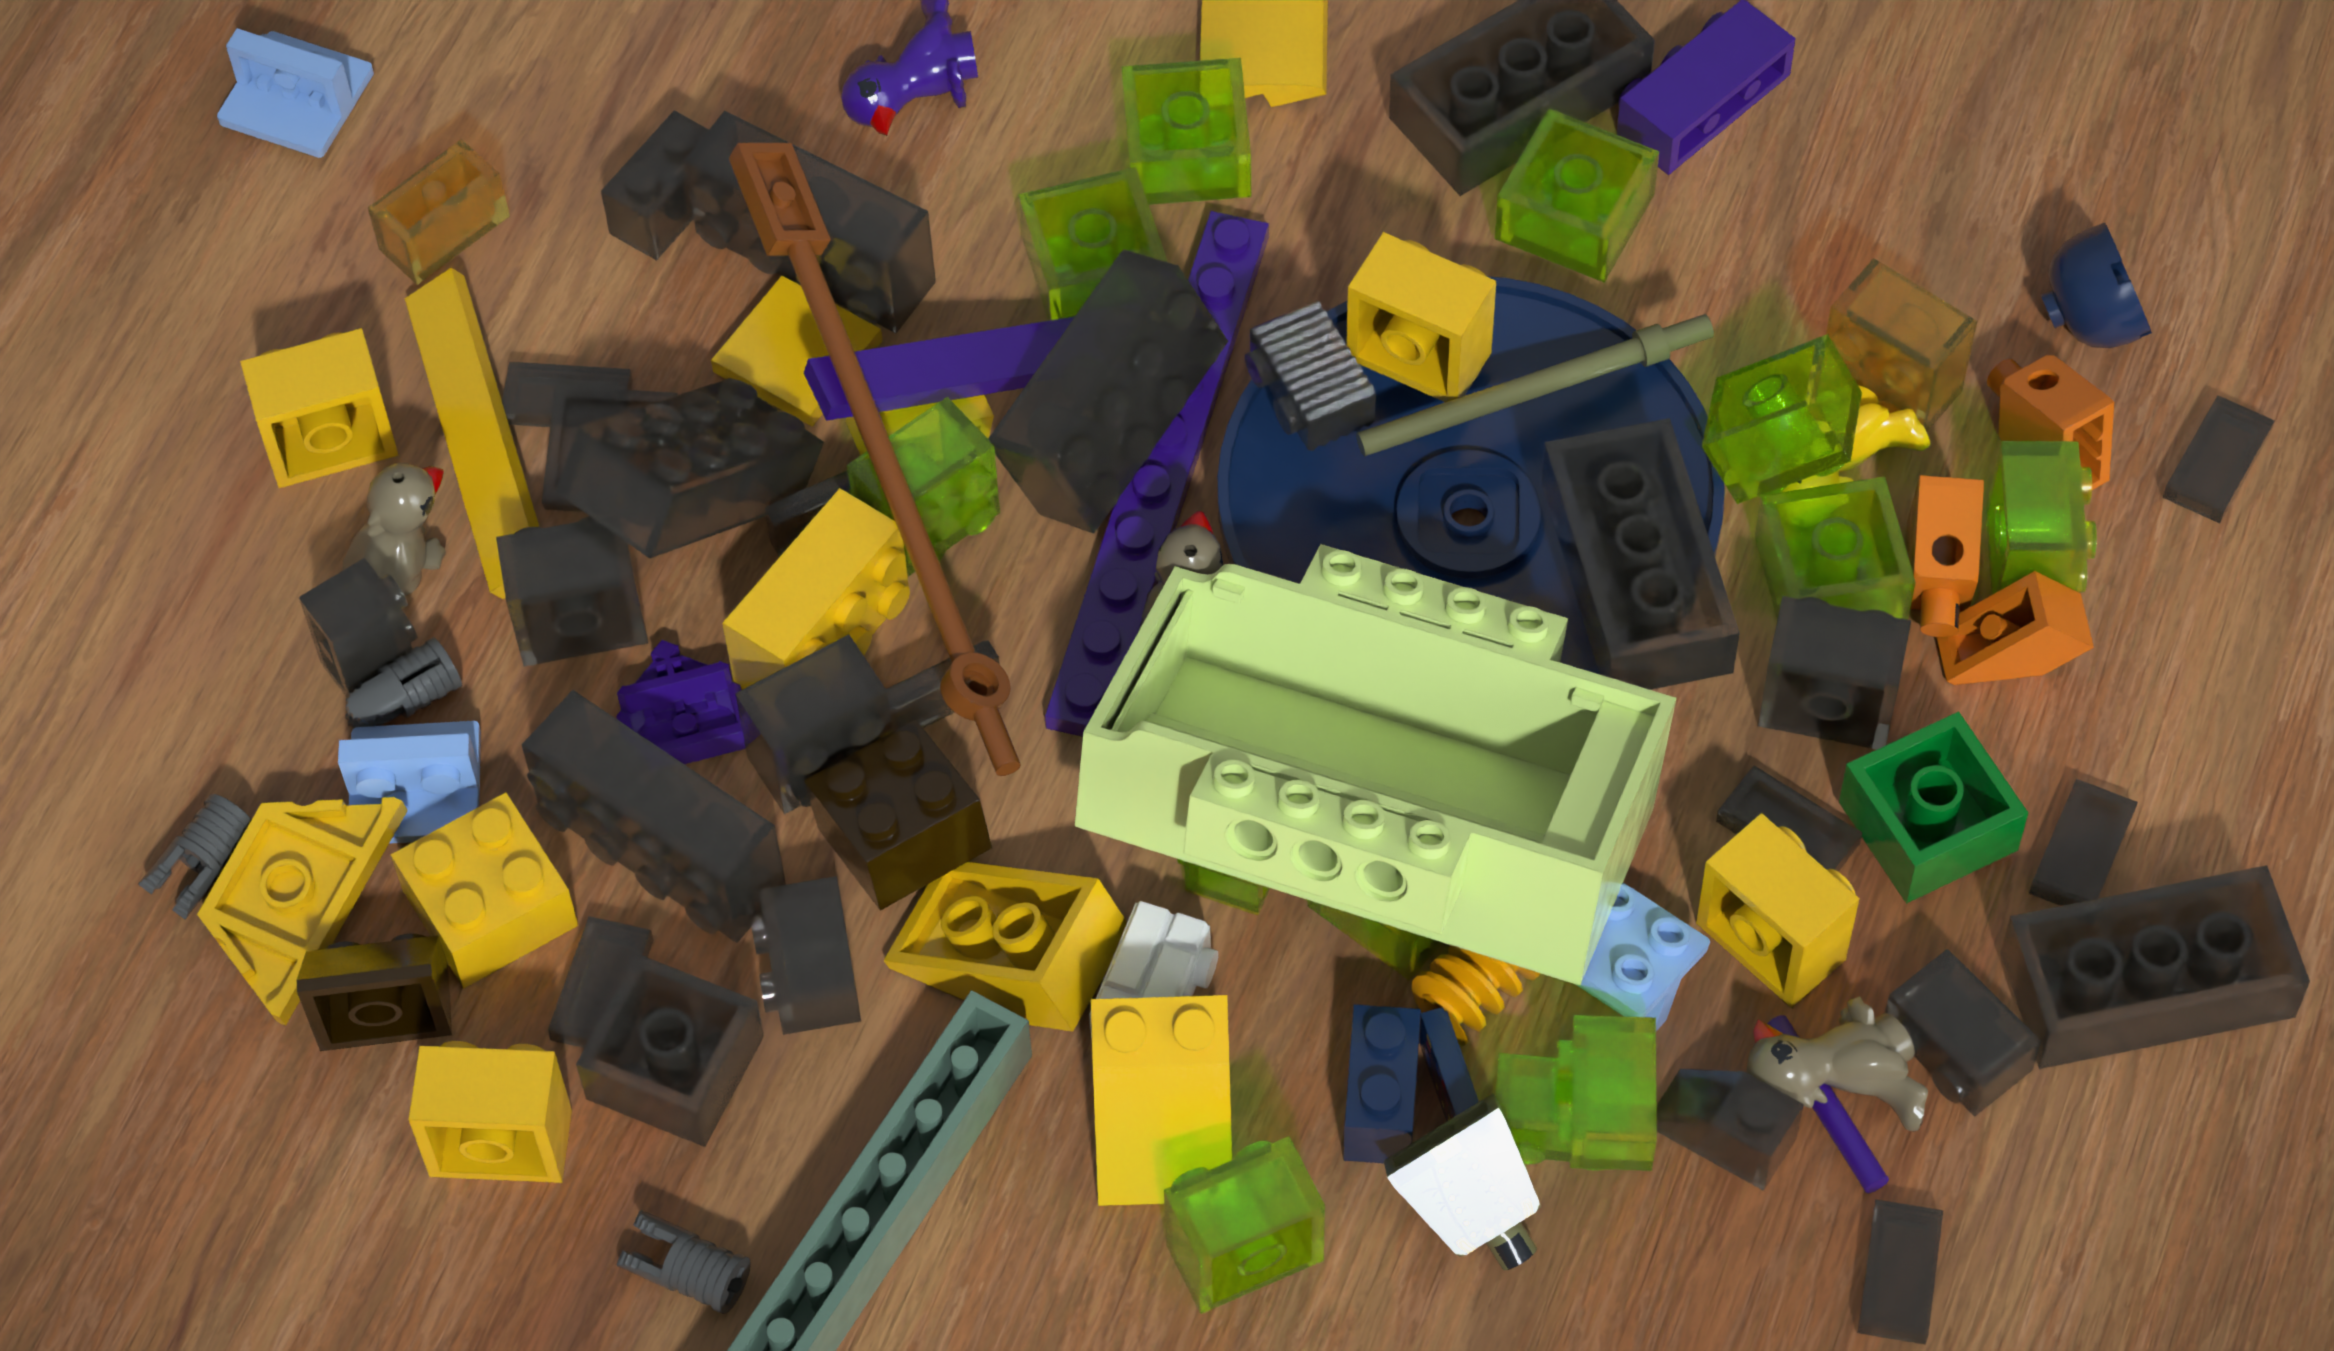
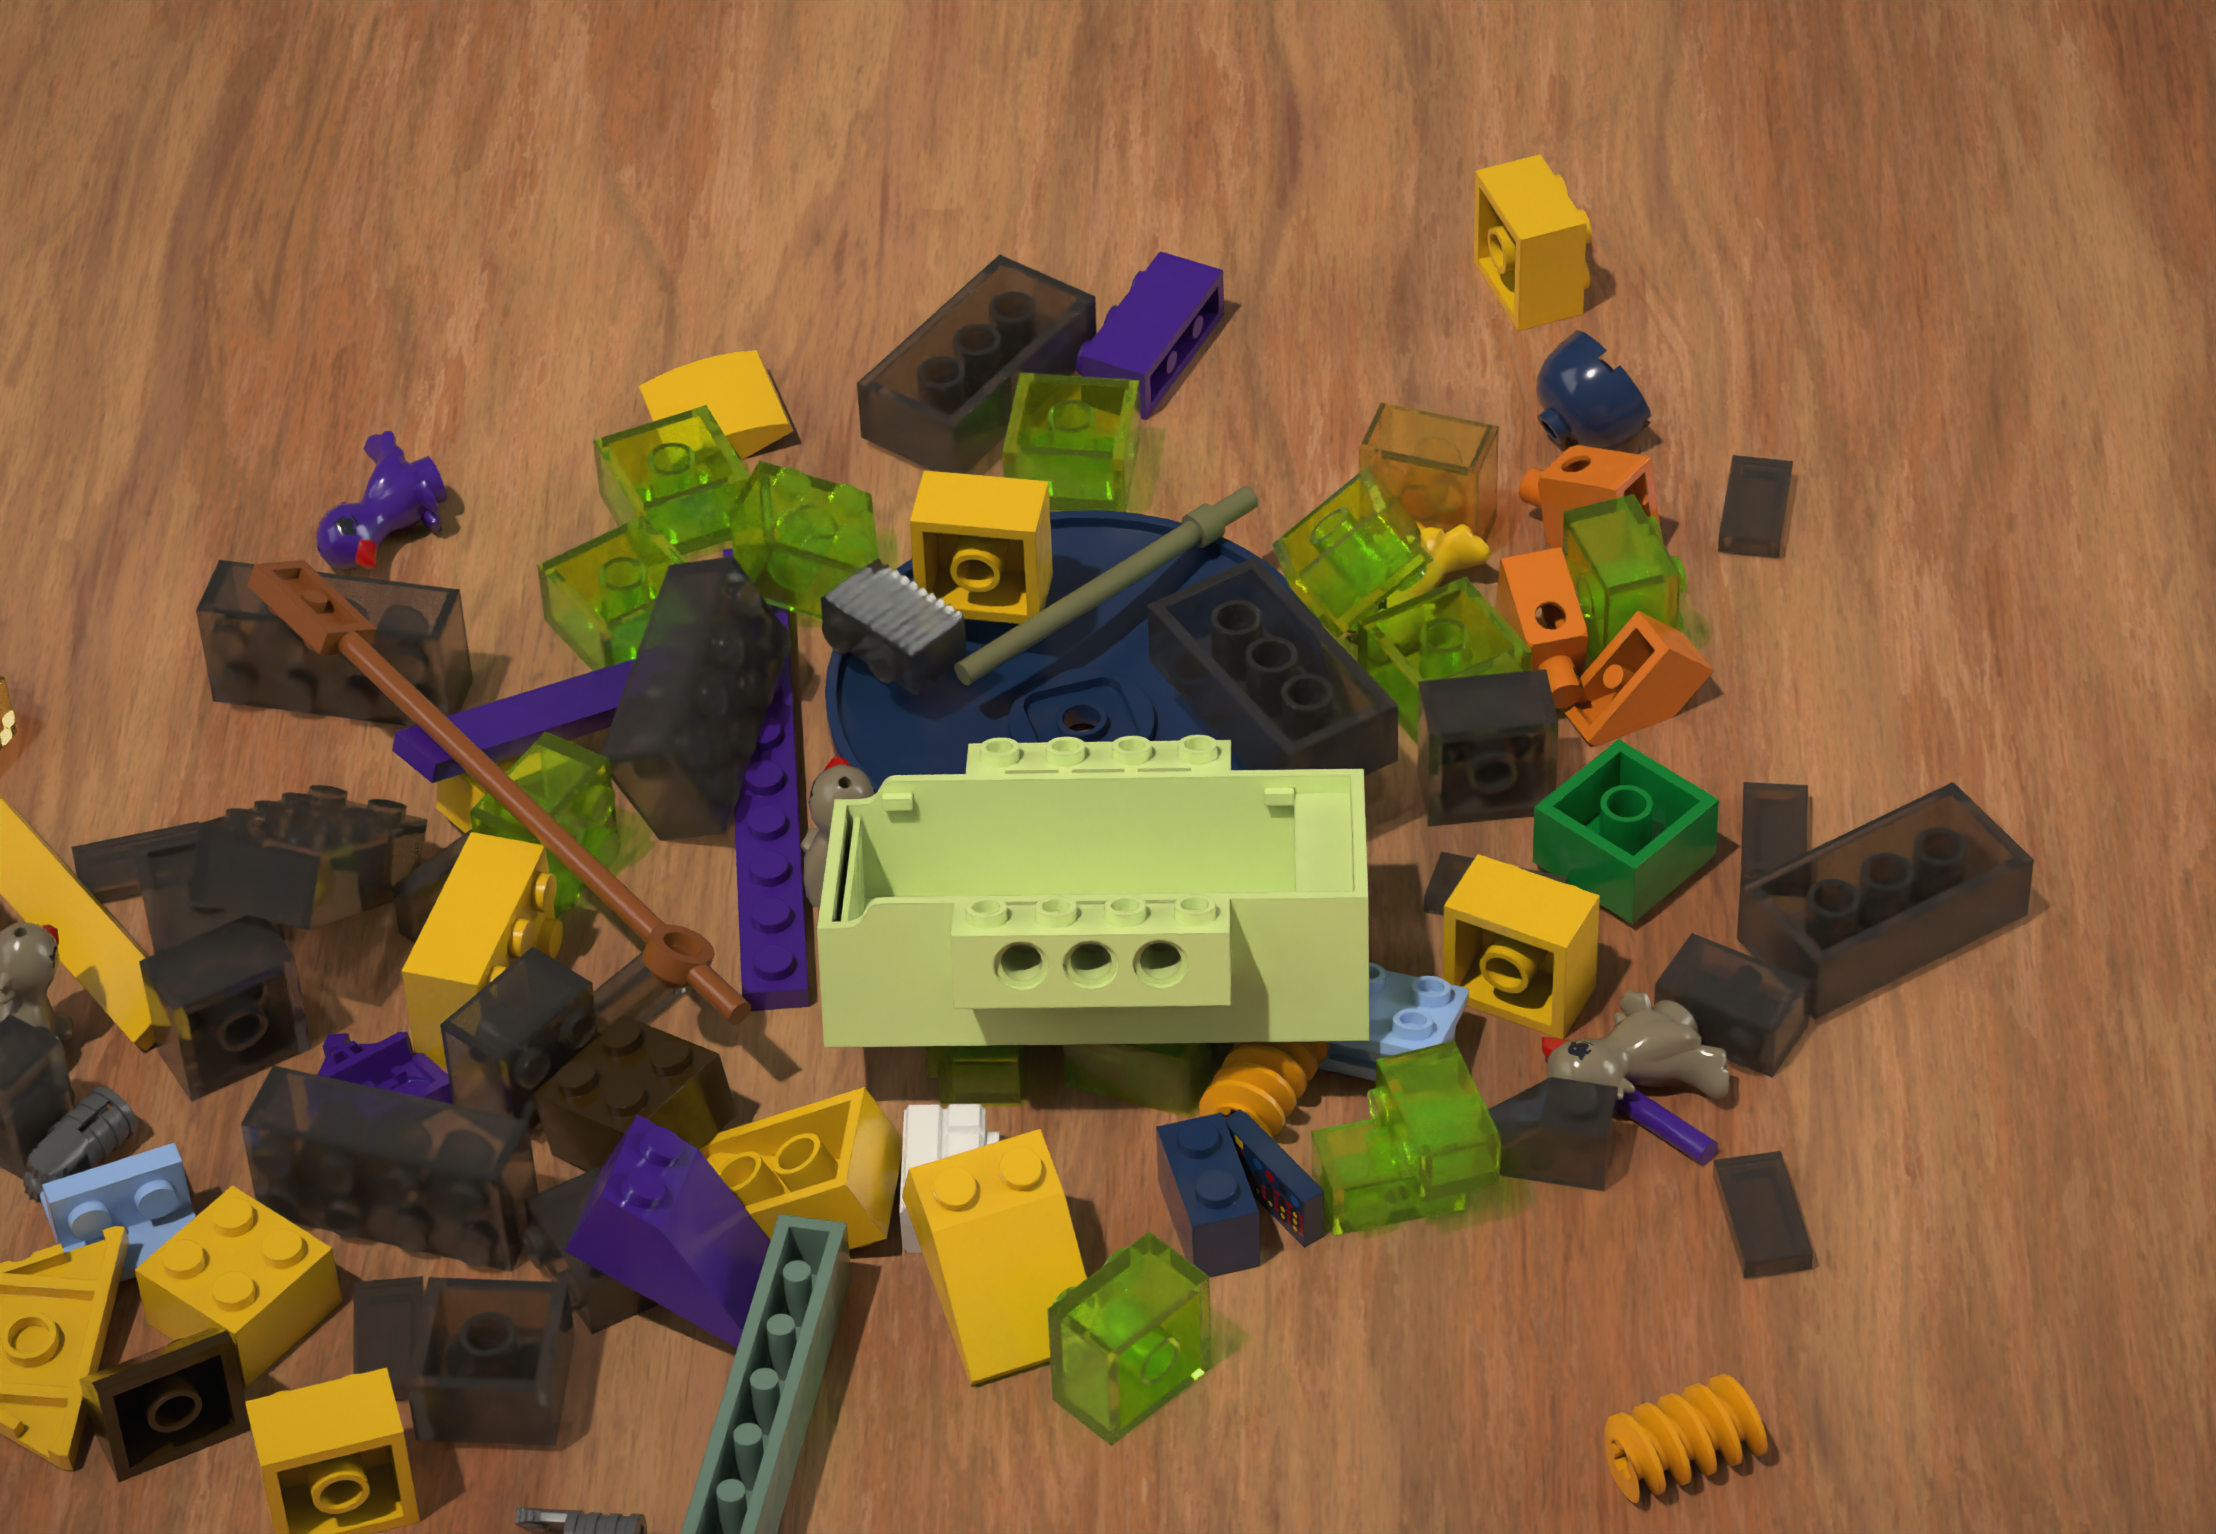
camera: 20 degrees left, 15 degrees down
(649, 195) = (163, 664): clear smoke brick -> none
(776, 344) = (353, 755): yellow tile -> none
(869, 977) = (672, 1231): none -> dark purple slope
(1278, 235) = (800, 535): none -> clear neon green brick
(1470, 1184) = (1334, 1242): torso -> none
(2110, 93) = (1530, 242): none -> yellow brick

